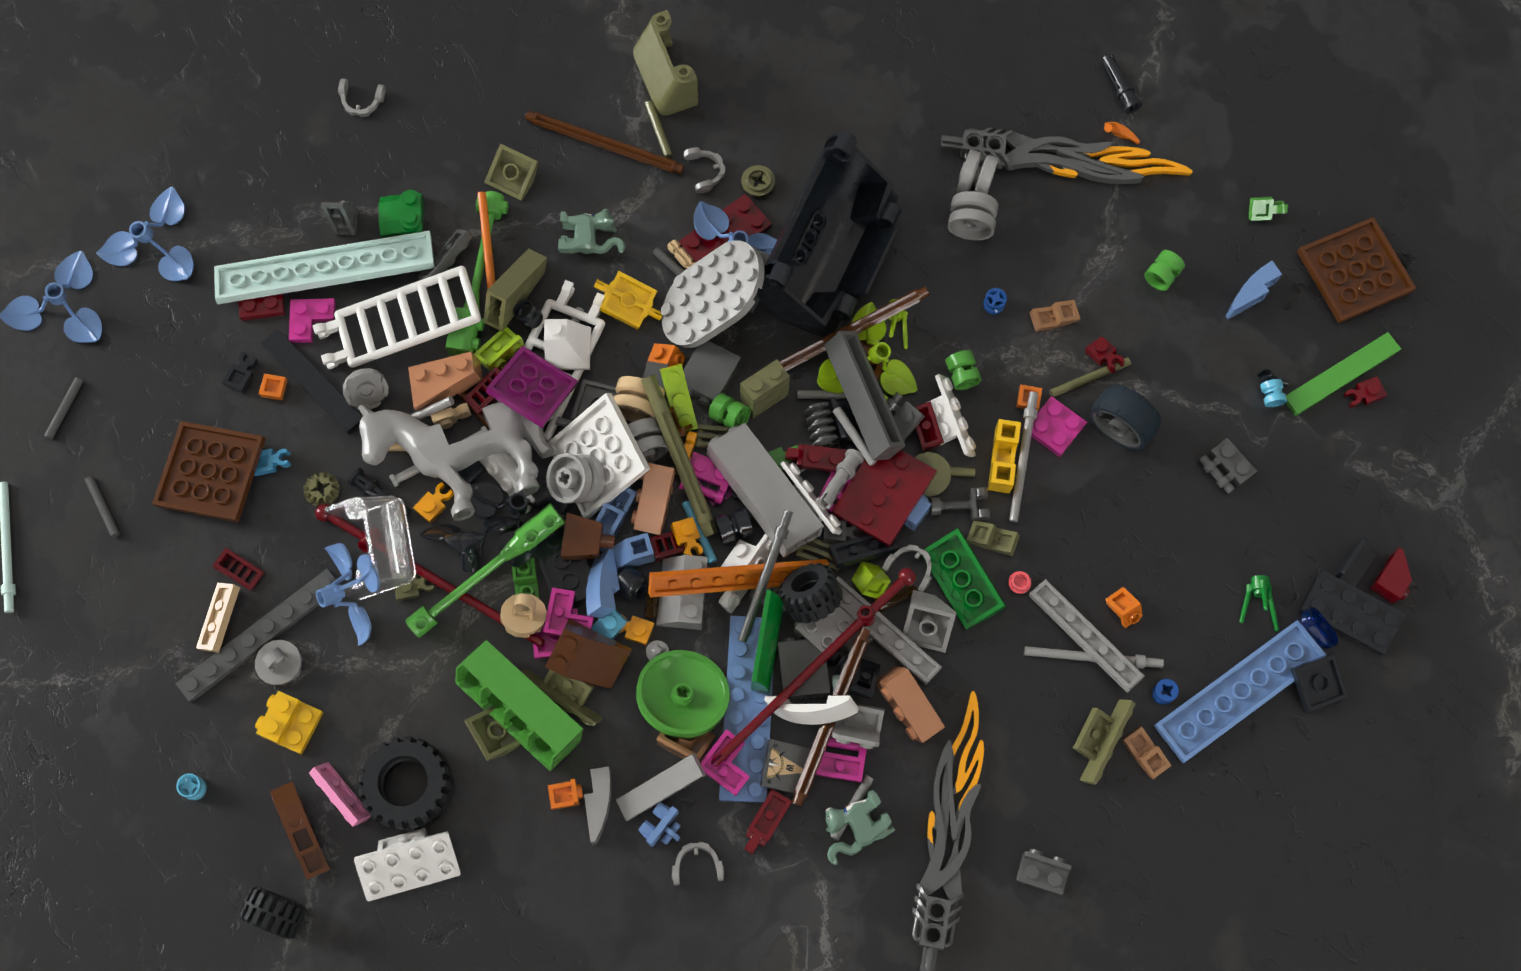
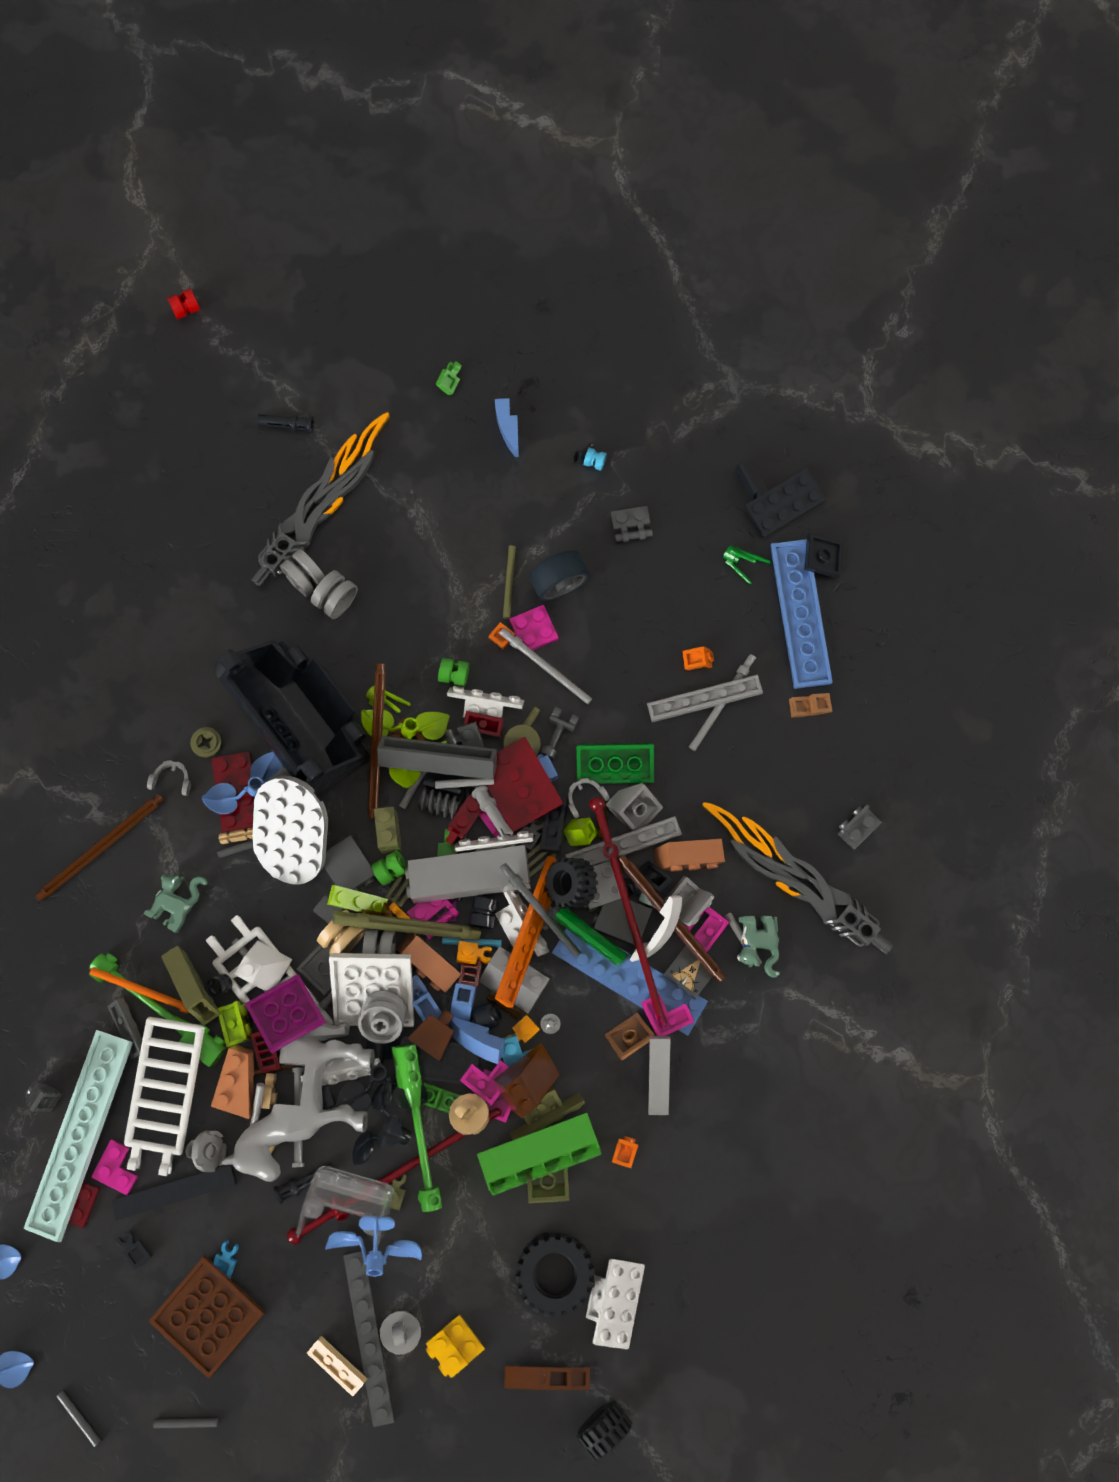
camera: 60 degrees left, 5 degrees up
(188, 783) = (466, 1455): medium azure wheel -> none
(226, 553) = (285, 1334): dark red slope -> none
(273, 387) = (161, 1228): orange plate -> none
(331, 491) = (279, 1221): olive gear -> none
(340, 794) = (534, 1331): bright pink plate -> none
(401, 214) = (67, 1046): green slope -> none
(431, 505) = (335, 1144): light orange plate -> none
(512, 172) = (83, 936): olive slope -> none
(598, 802) = (644, 1129): light grey slope -> none
(628, 300) = (250, 898): yellow plate -> none
(658, 129) = (113, 797): olive bar -> none
(666, 354) = (315, 892): orange bracket -> none
(666, 816) = (681, 1082): medium blue hips -> none
(668, 86) = (83, 771): olive windscreen -> none
(682, 693) = (595, 1021): bright green dish -> none
(695, 846) = (736, 1061): light grey piece -> none
(767, 820) = (722, 1007): dark red hinge -> none
(993, 538) = (595, 723): olive slope -> none
(996, 296) = (412, 614): blue wheel -> none
(1003, 456) = (531, 676): yellow arch -> none
(1019, 582) = (639, 723): coral plate -> none
(1055, 316) = (446, 579): medium nougat slope -> none
(1100, 737) = (784, 730): olive bracket -> none
(1104, 352) = (495, 561): dark red plate -> none
(1121, 131) = (325, 445): orange bar -> none
(1161, 695) = (773, 670): blue wheel -> none
(1165, 270) = (458, 482): bright green wheel -> none
(1319, 628) = (785, 532): clear blue plate -> none
(1342, 374) = (606, 402): bright green tile -> none
(1356, 270) = (533, 344): reddish brown plate -> none
(1367, 391) = (629, 393): dark red plate -> none
(1393, 578) = (775, 459): dark red slope -> none

